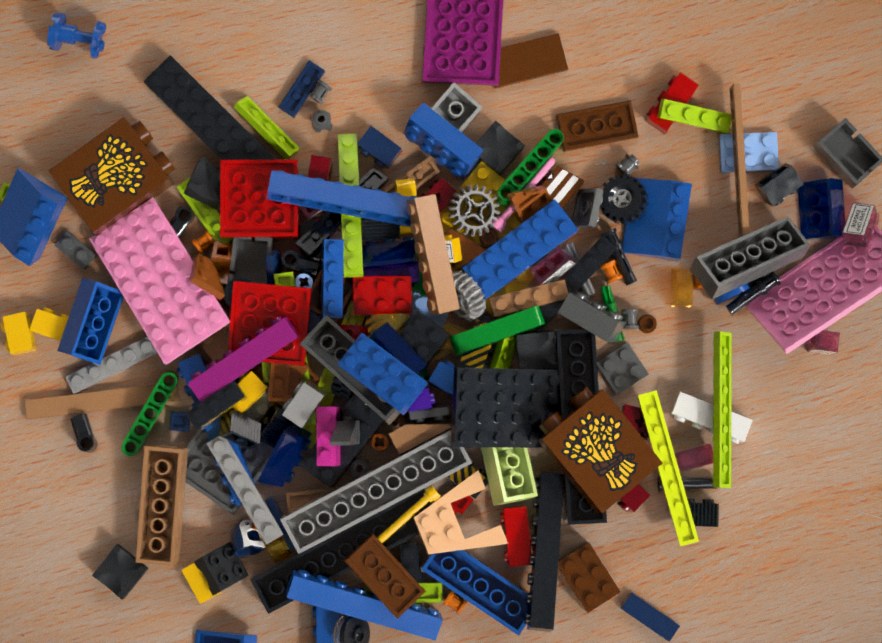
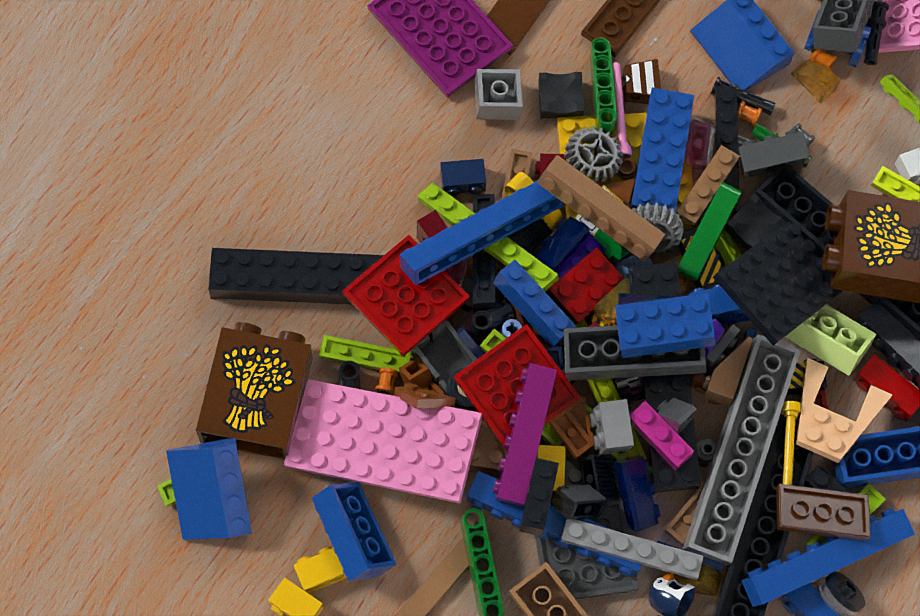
camera: 50 degrees left, 15 degrees down
(67, 33) = (103, 306): blue piece -> none
(75, 250) = (278, 488): dark grey plate -> none
(111, 365) = (406, 554): light grey plate -> none
(179, 422) = (512, 553): dark blue tile -> none
(205, 184) = (346, 327): black brick -> none
(266, 128) = (350, 241): lime plate -> none
(301, 88) = (350, 187): dark blue tile -> none
(318, 126) = (392, 202): dark grey brick -> none
(320, 92) = (369, 175): dark grey bush -> none
(379, 448) = (706, 411): orange bush -> none
(442, 141) = (513, 123): blue brick -> none
(455, 602) = (896, 490): orange bush -> none
(528, 202) = (632, 111): dark orange wing -> none
(587, 207) = (681, 74): dark grey plate -> none
(615, 195) = (702, 38): black wheel -> none
(622, 368) = (833, 178): dark grey plate -> none
(628, 164) = (678, 22): dark grey brick -> none
(647, 323) = (817, 129): reddish brown plate -> none

